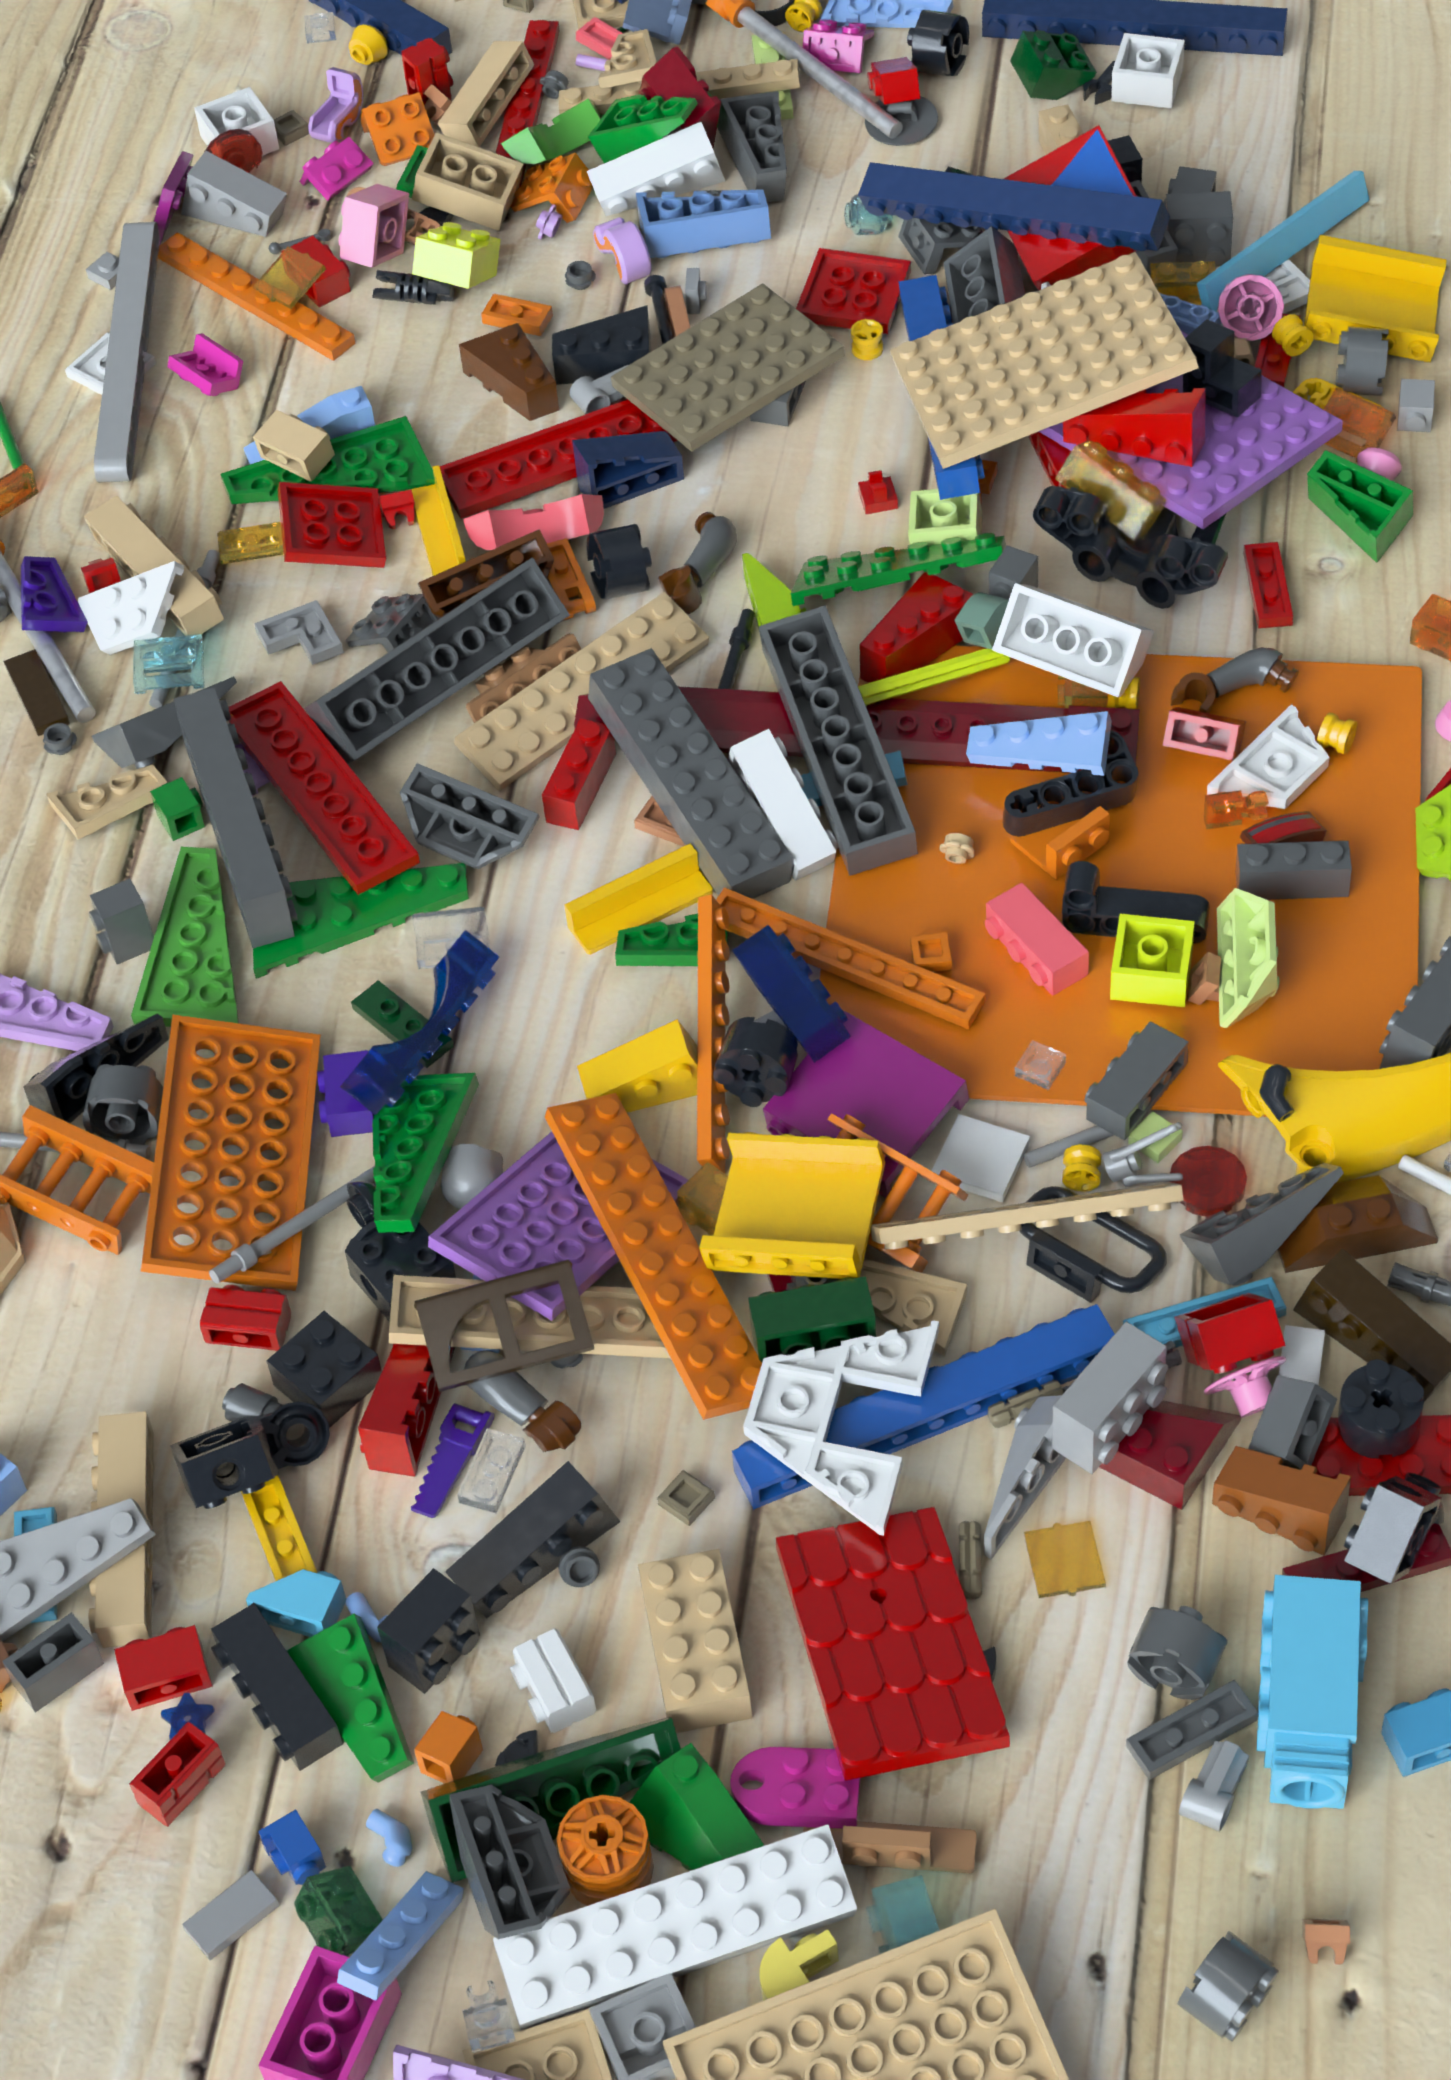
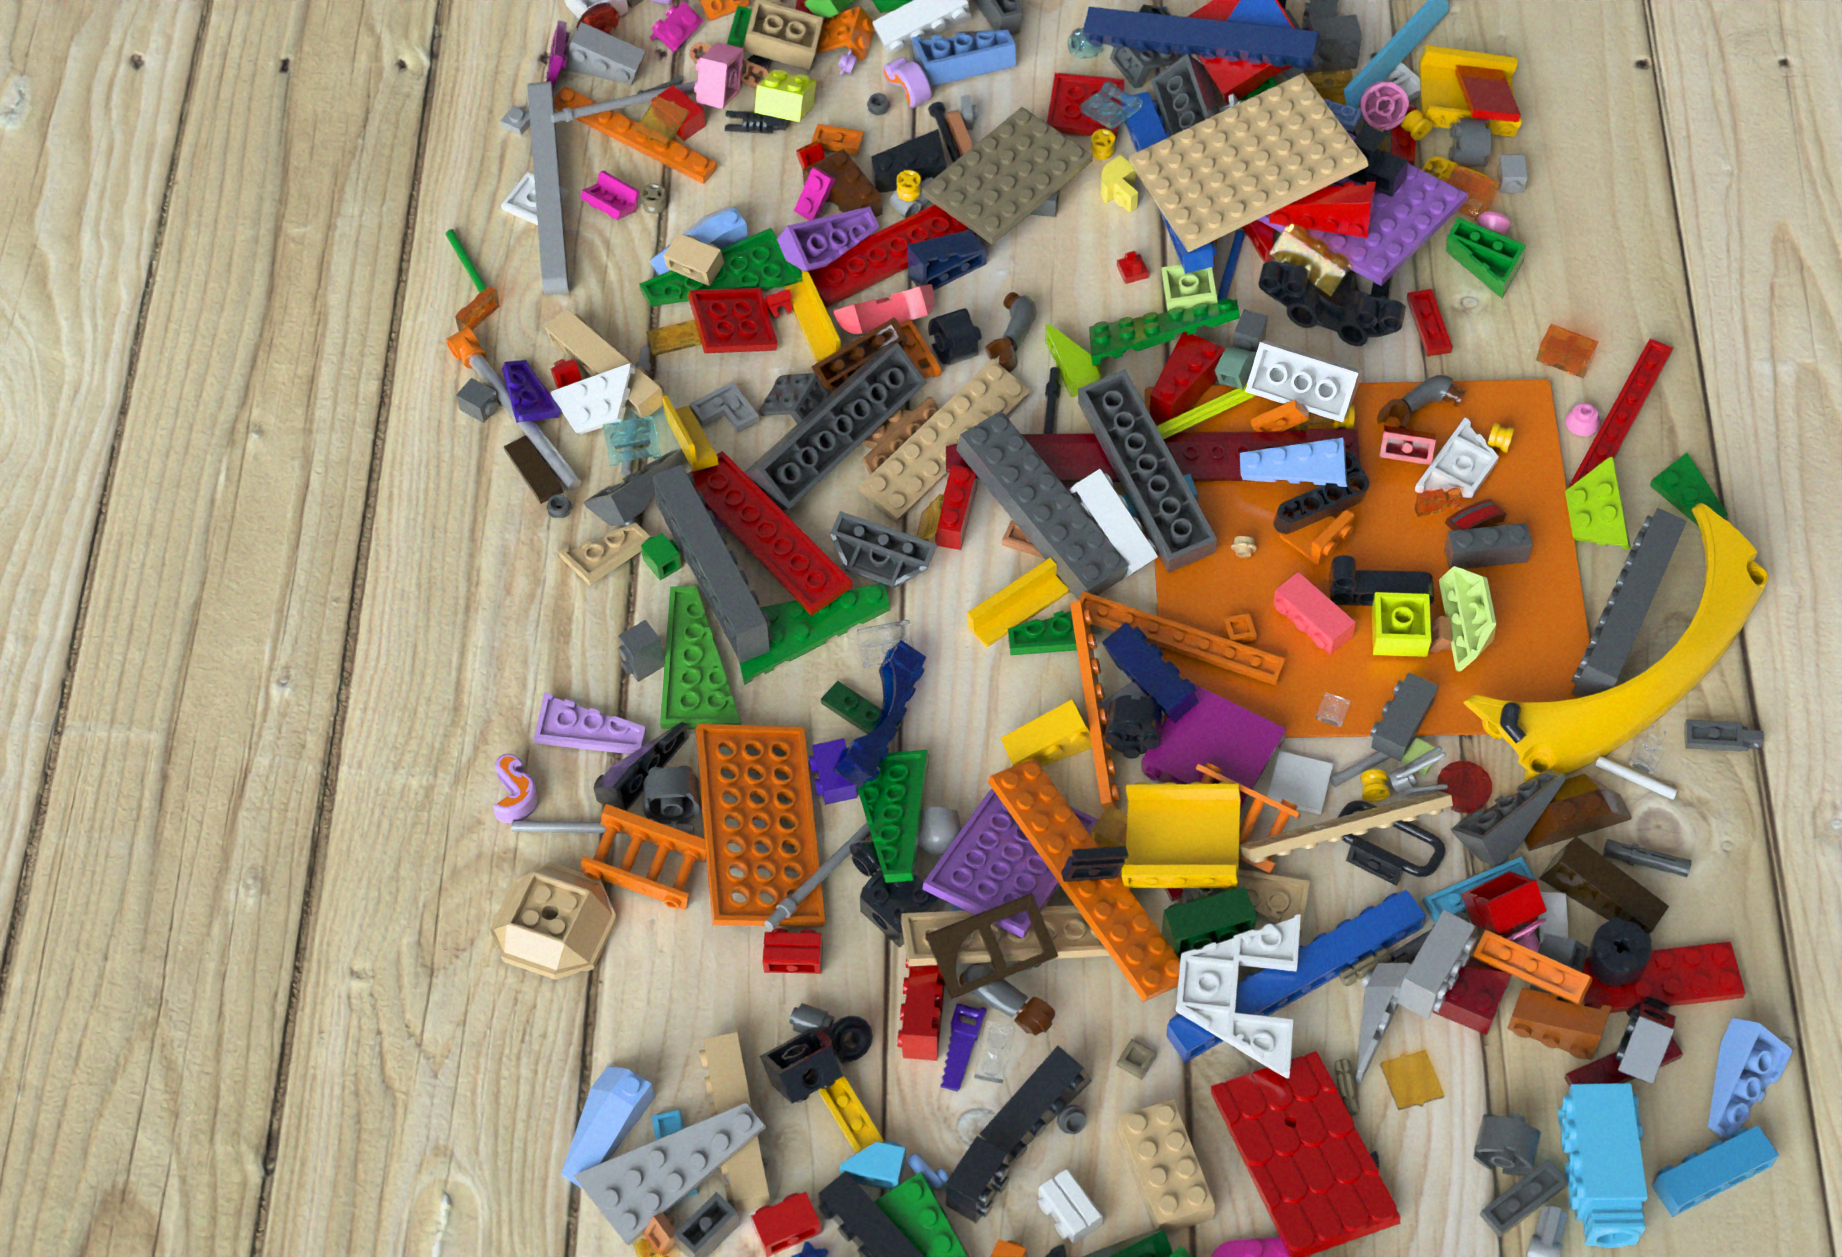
camera: 10 degrees left, 5 degrees up
(170, 261) = (569, 114): none -> light grey bar
(244, 661) = (689, 436): none -> yellow panel
(262, 373) = (653, 198): none -> dark tan wheel
(325, 1367) = (859, 985): black brick -> none
(470, 377) = (814, 194): none -> dark pink plate
(471, 430) = (825, 239): none -> medium lavender wedge
(475, 327) = (810, 154): none -> red tile
(541, 782) = (930, 519): none -> clear yellow piece
(593, 371) = (908, 185): none -> yellow wheel
(662, 1229) = (1094, 864): none -> black plate
(876, 296) = (1107, 111): none -> clear light blue plate
(877, 388) = (1117, 183): none -> light yellow brick
(1013, 495) = (1231, 265): none -> blue bar
(1035, 686) = (1281, 418): none -> orange plate
(1250, 1416) = (1532, 967): none -> orange plate
(1395, 300) = (1487, 93): none -> red tile

